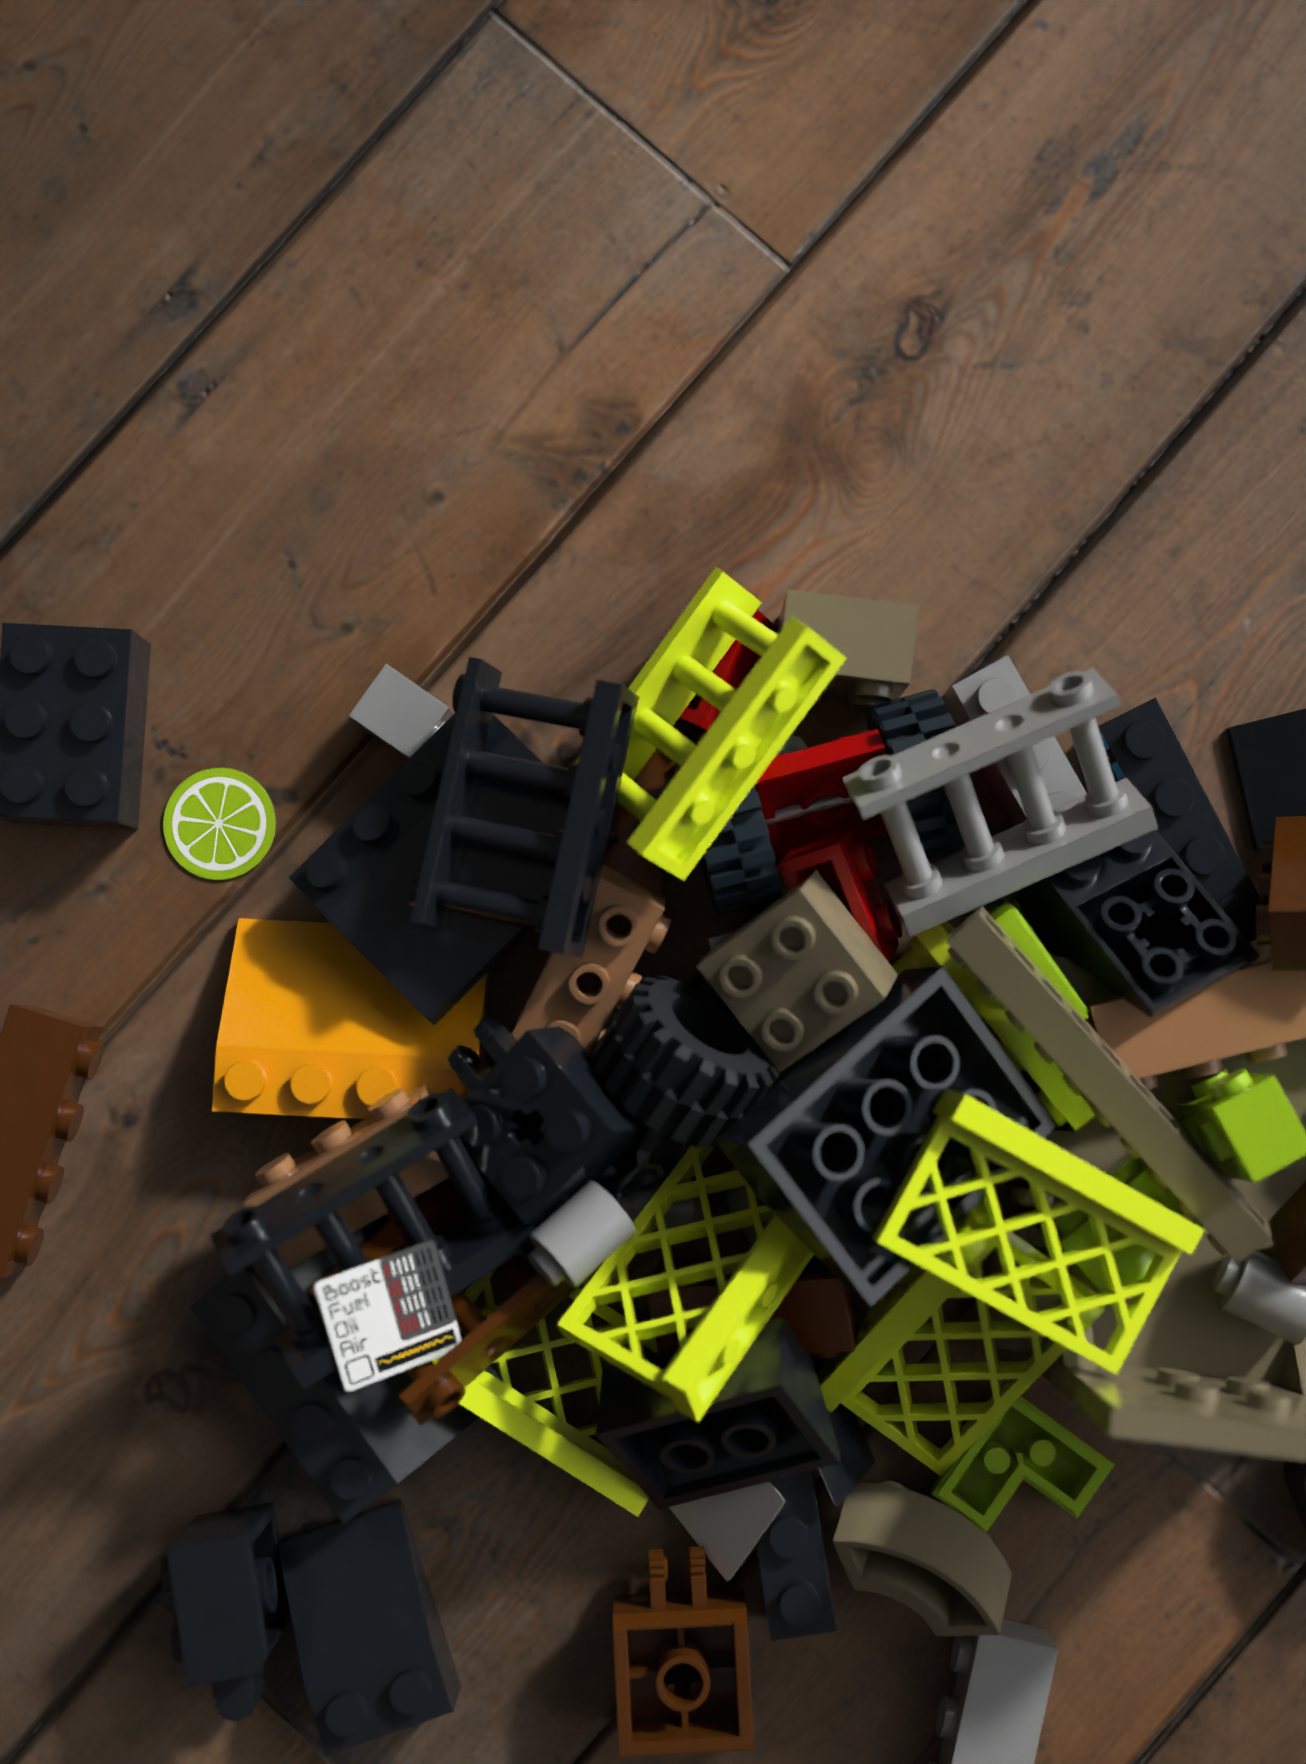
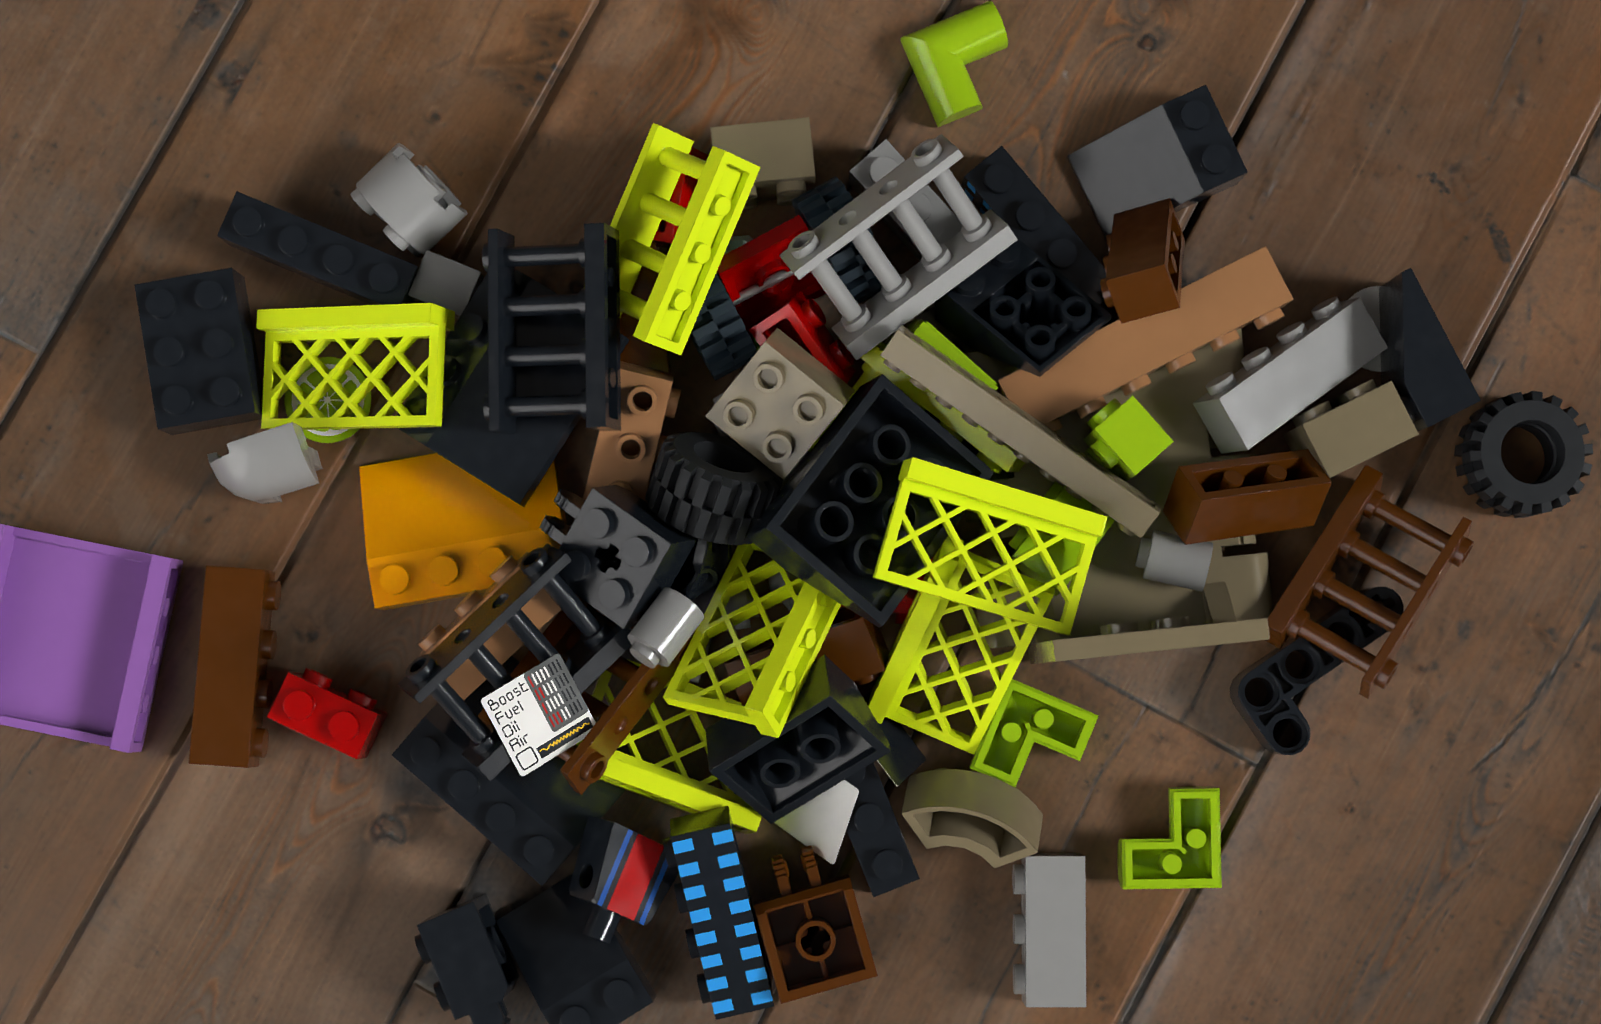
camera: 15 degrees left, 0 degrees up
(119, 893) = (267, 464): none -> light grey brick
(122, 1229) = (326, 714): none -> red brick
(248, 636) = (316, 252): none -> black brick
(284, 743) = (362, 325): none -> neon yellow fence
(379, 596) = (409, 201): none -> light grey brick
(449, 1535) = (619, 876): none -> torso
(567, 1612) = (720, 911): none -> black brick
(1096, 562) = (940, 58): none -> lime brick
(1188, 1674) = (1190, 853): none -> lime brick

